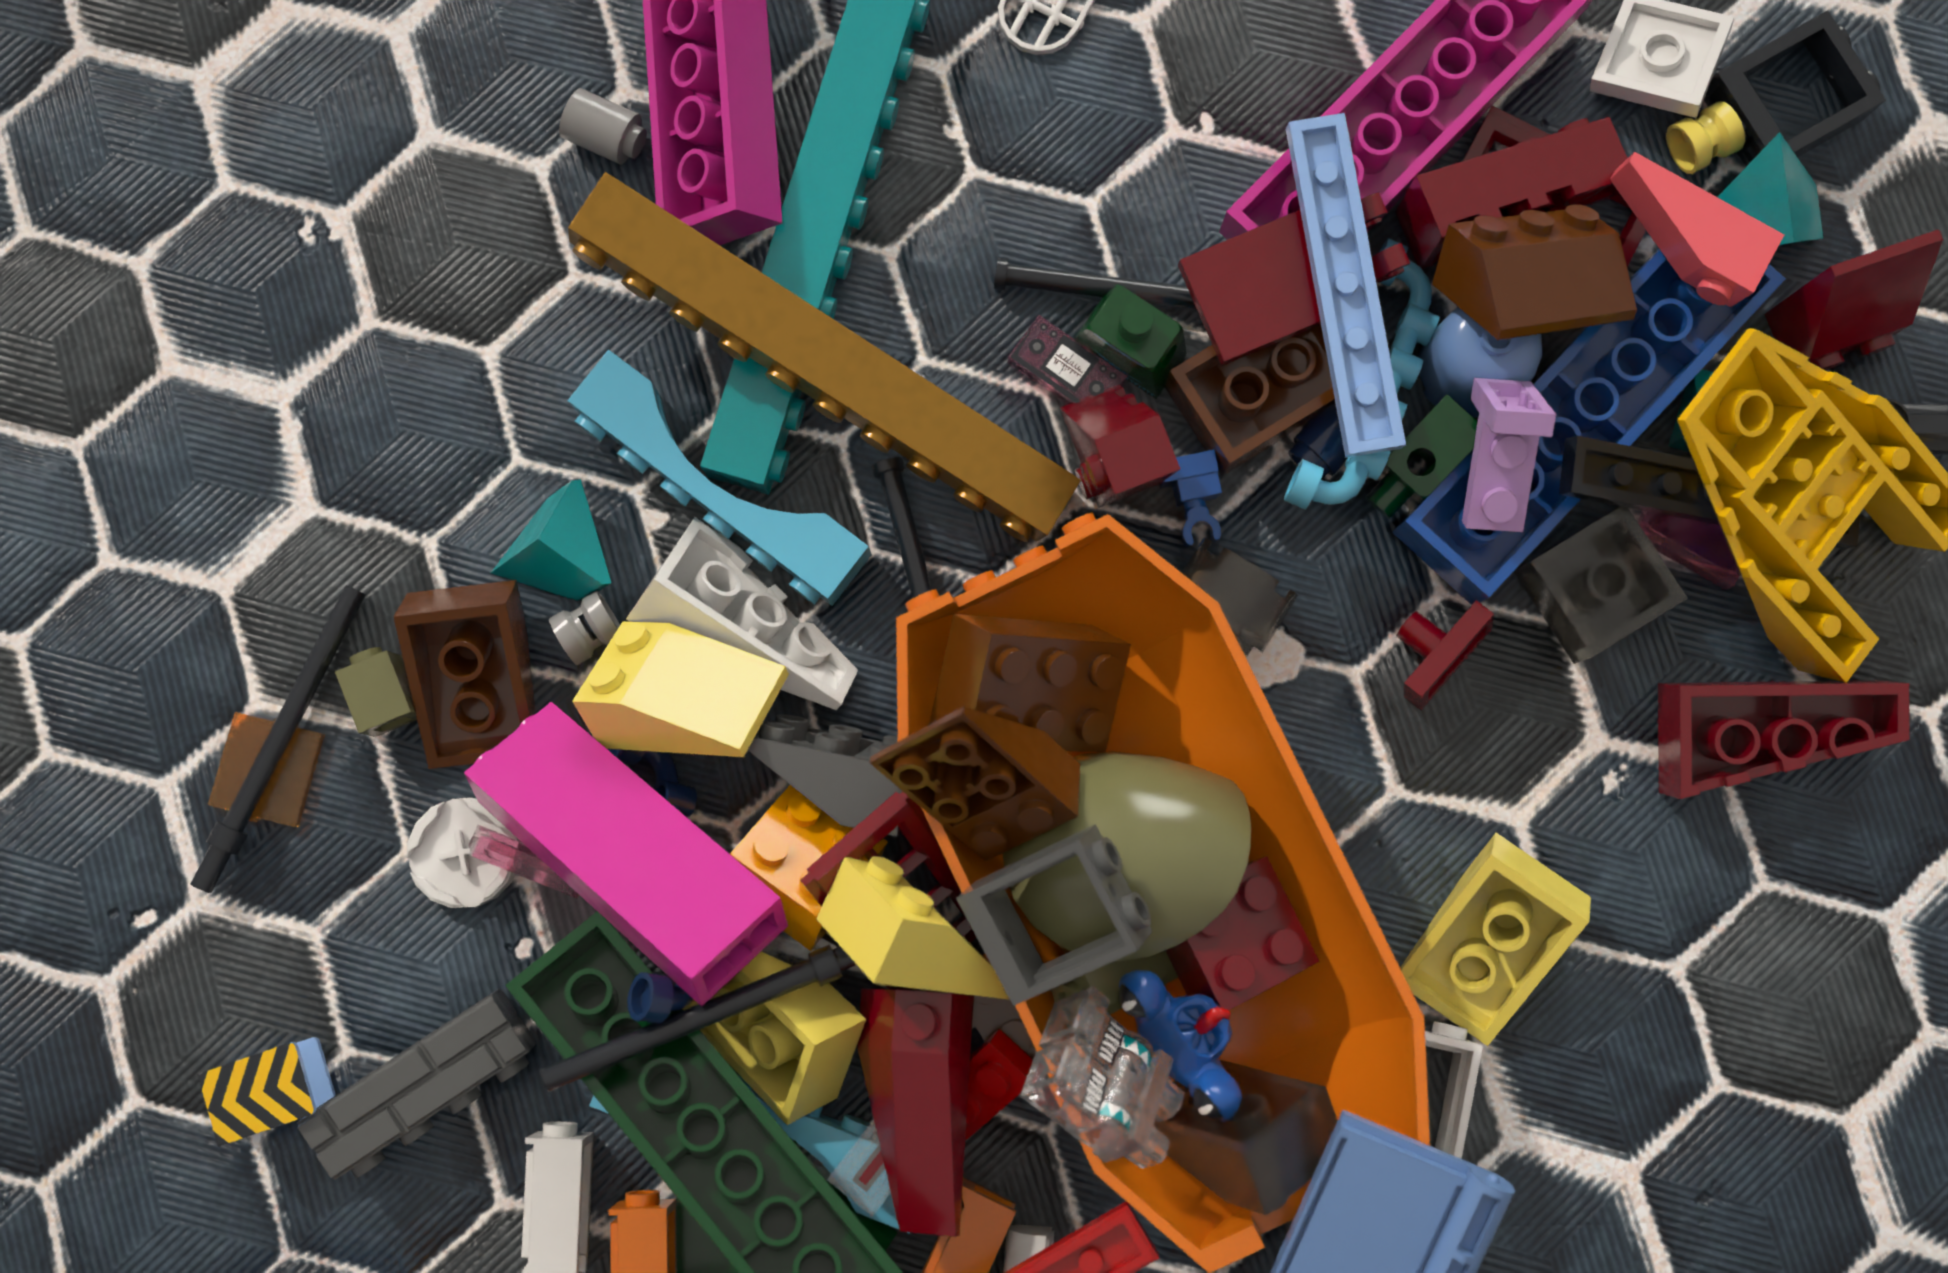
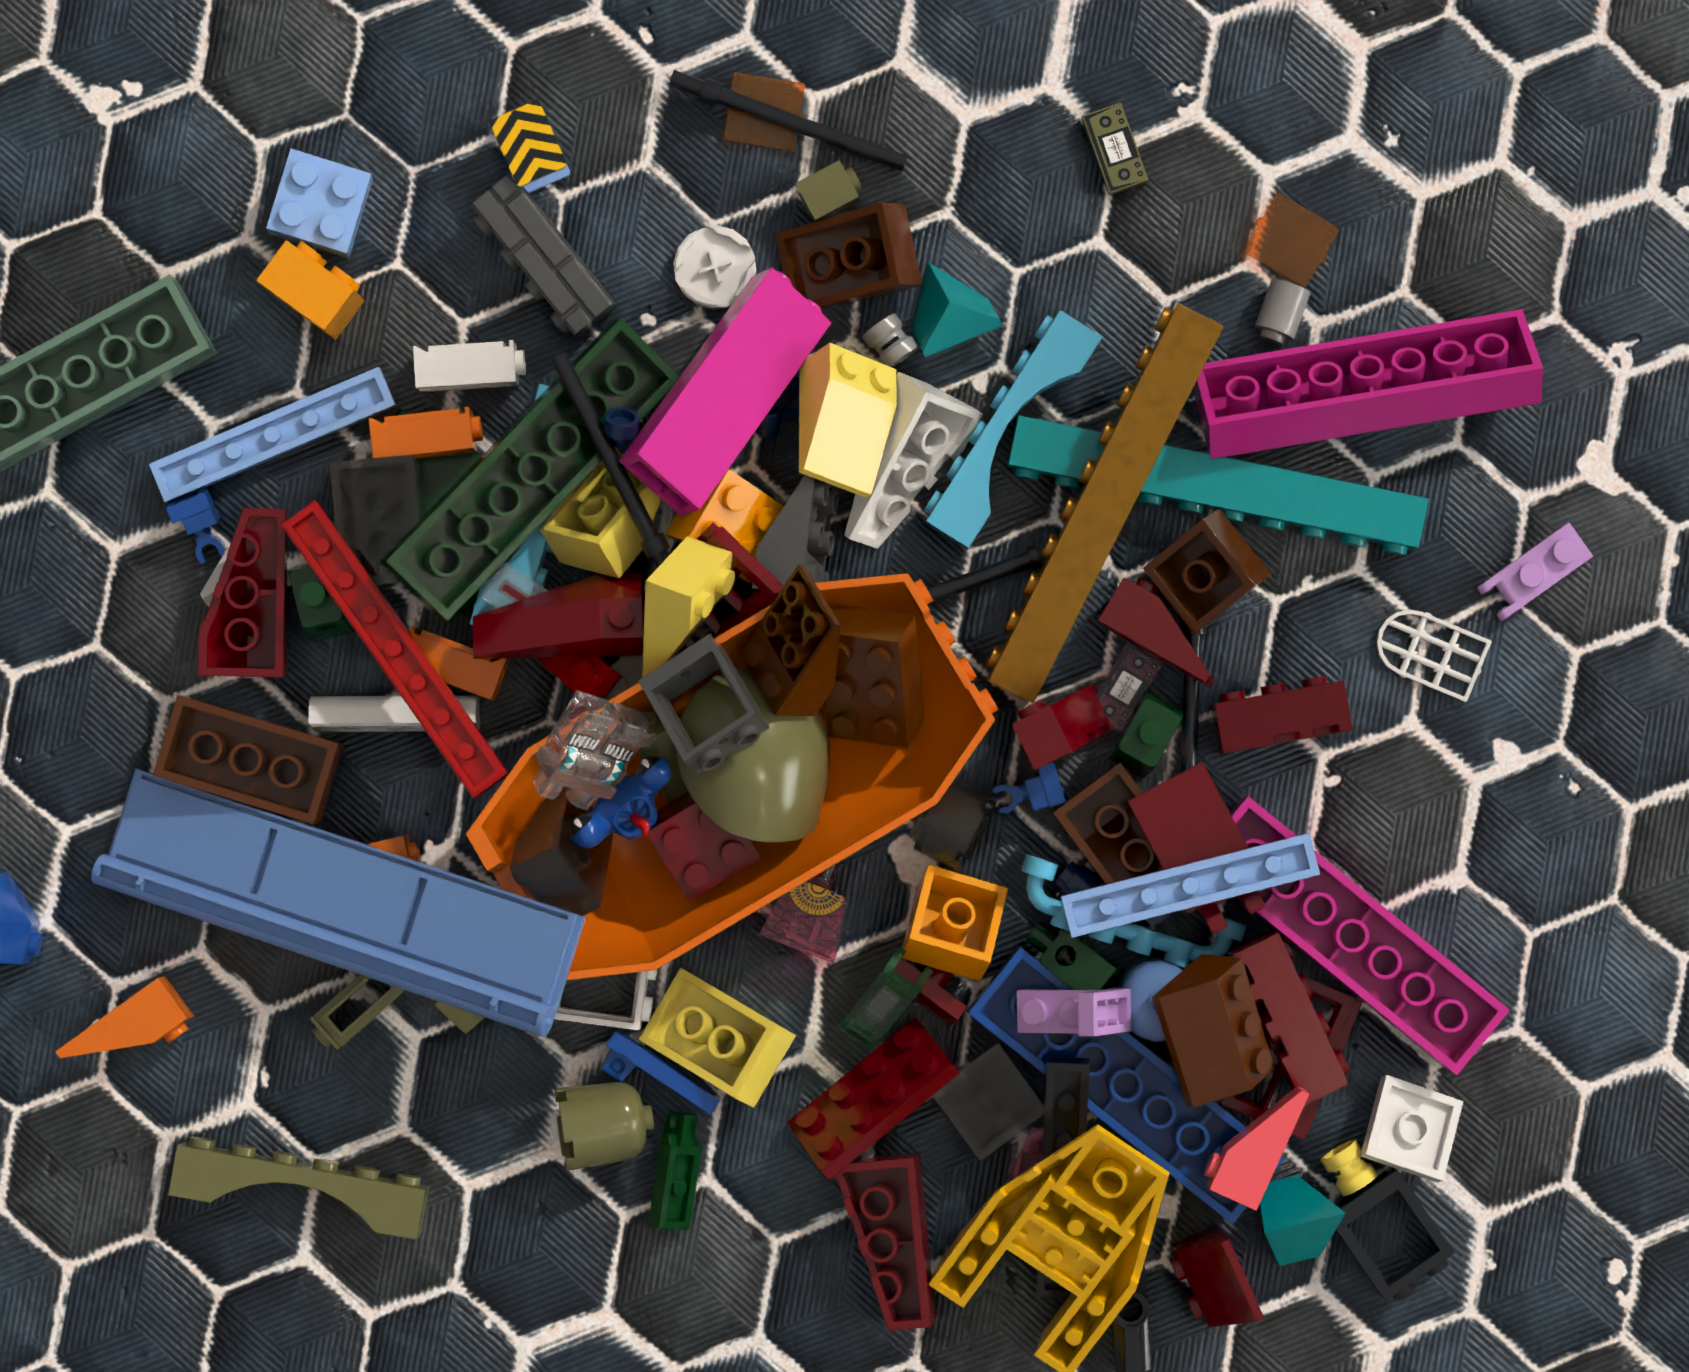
camera: 85 degrees right, 5 degrees up
(371, 320) = (1114, 149): none -> tile
(513, 113) = (1291, 240): none -> clear orange piece
(516, 858) = (713, 310): clear pink tile -> none
(928, 241) = (1206, 571): none -> reddish brown brick
(992, 321) = (1145, 621): none -> dark red slope
(1121, 165) = (1281, 715): none -> dark red wedge
(1353, 798) = (809, 917): none -> clear pink torso
(1364, 607) = (954, 922): none -> light orange brick
(1464, 710) = (881, 1003): none -> clear green window
(1507, 1058) = (628, 1053): none -> blue hinge
(1591, 736) = (872, 1098): none -> dark red plate
(1606, 1106) = (601, 1124): none -> olive cylinder
(1673, 1011) = (676, 1174): none -> dark green hinge

